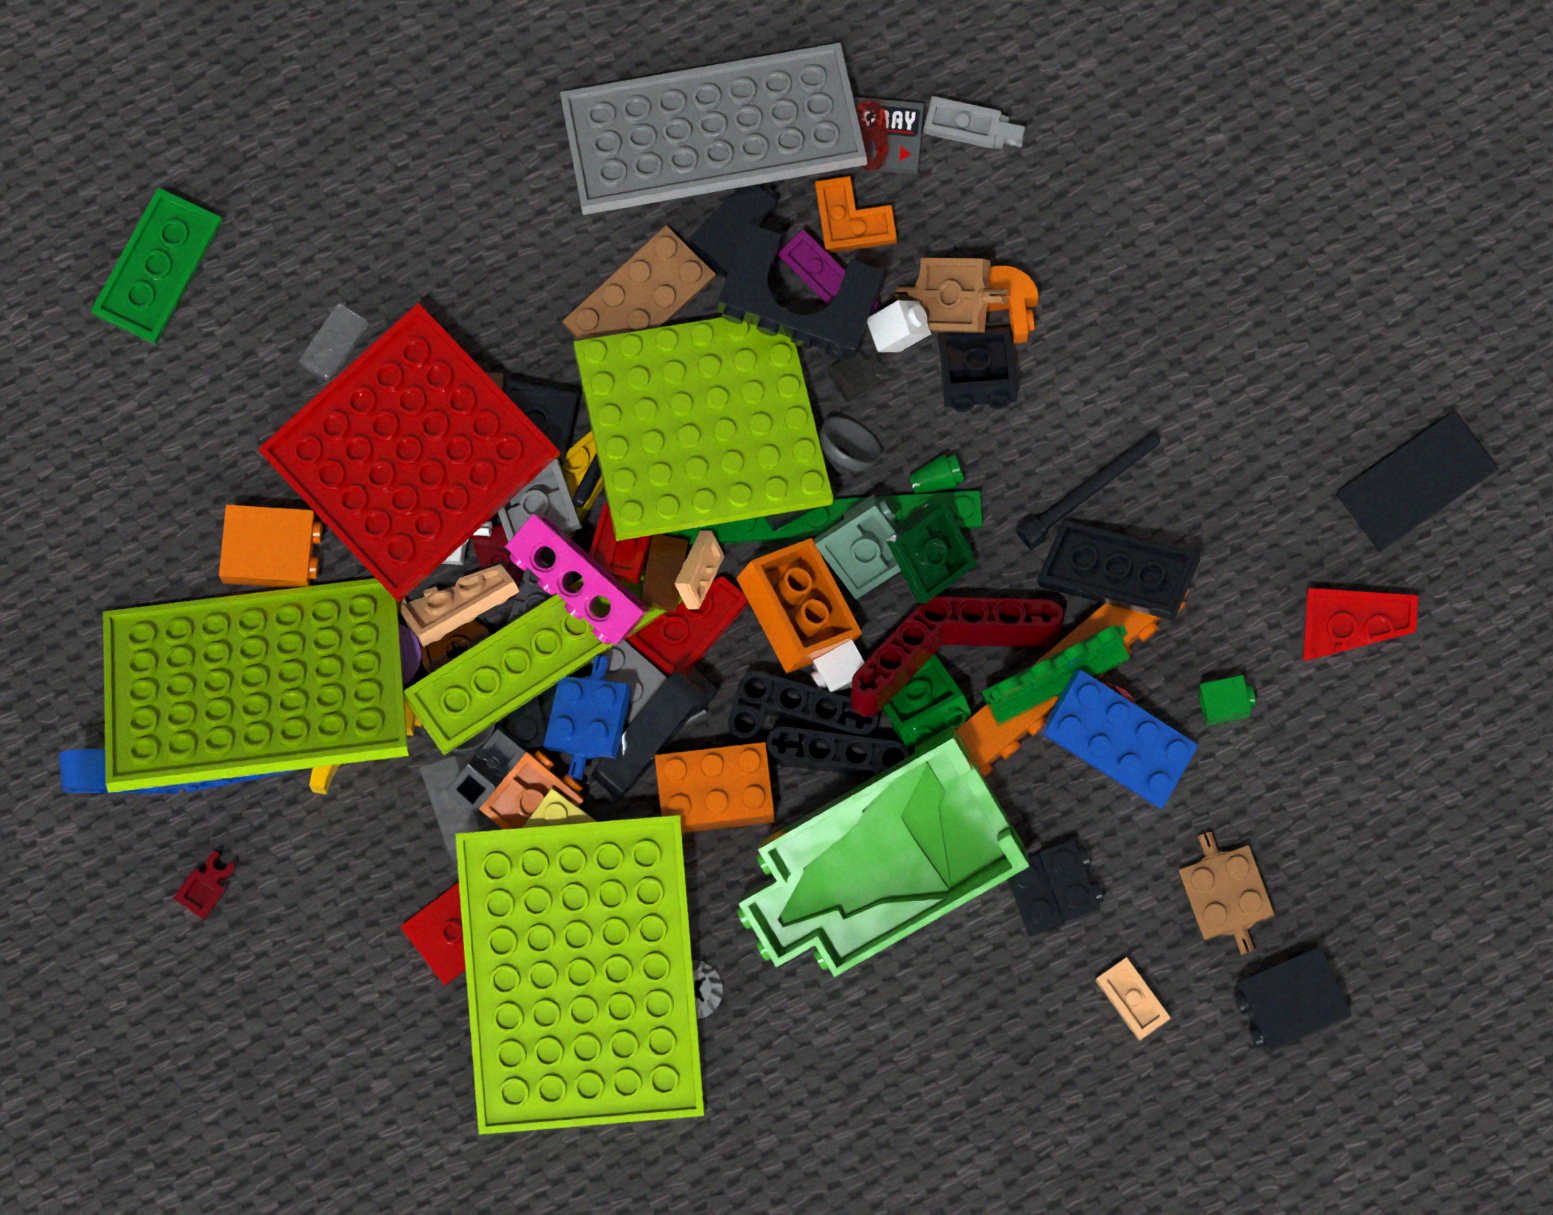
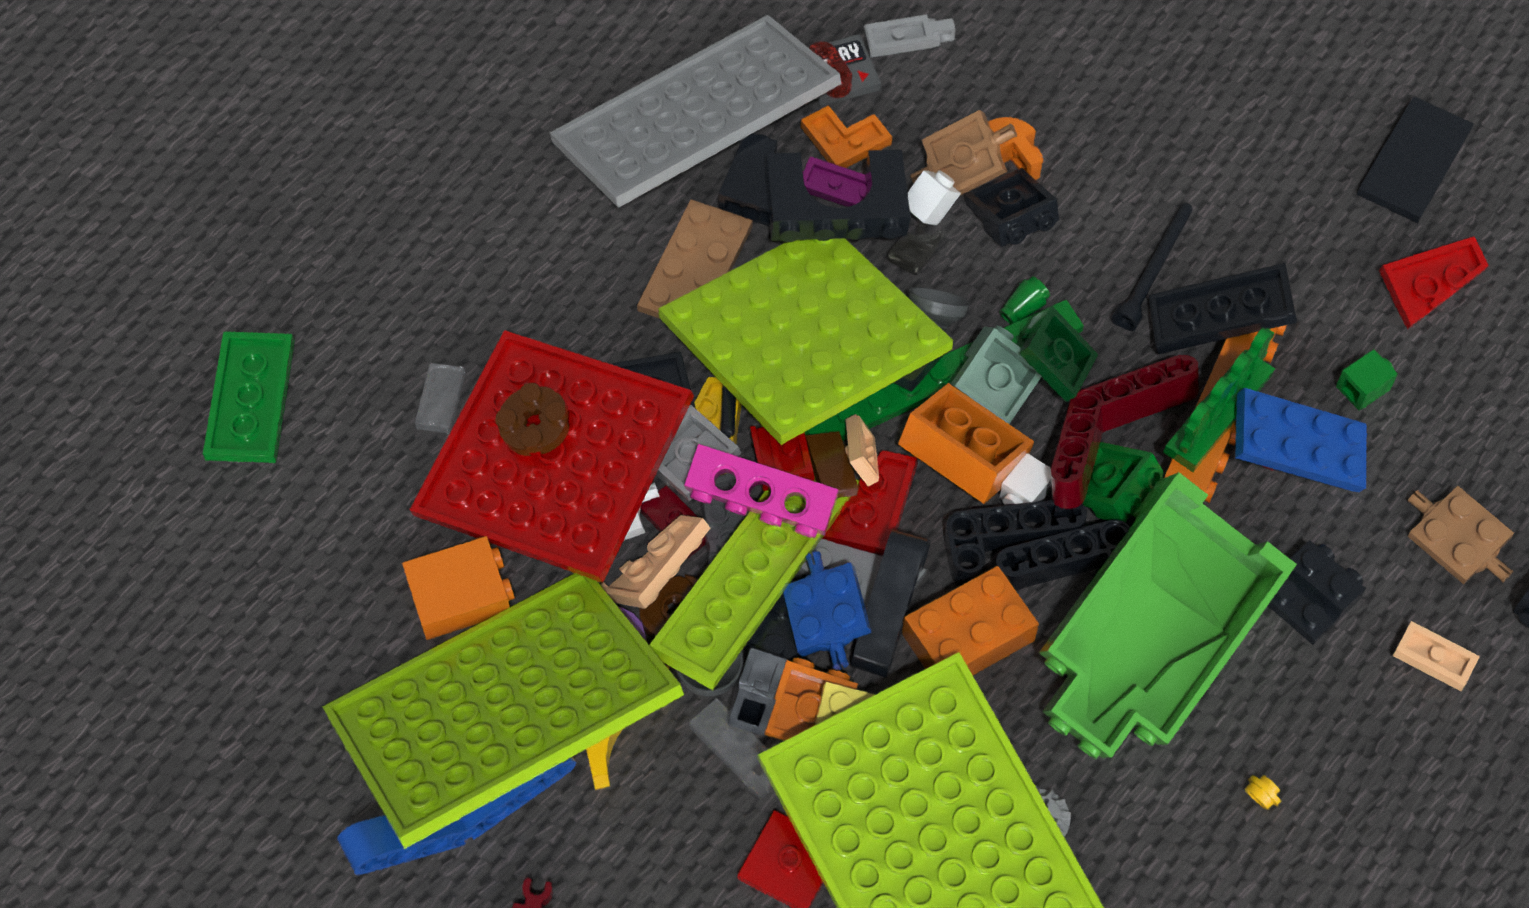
camera: 25 degrees left, 15 degrees down
(383, 406) = (522, 405): none -> reddish brown plate
(902, 1055) = (1263, 791): none -> yellow plate

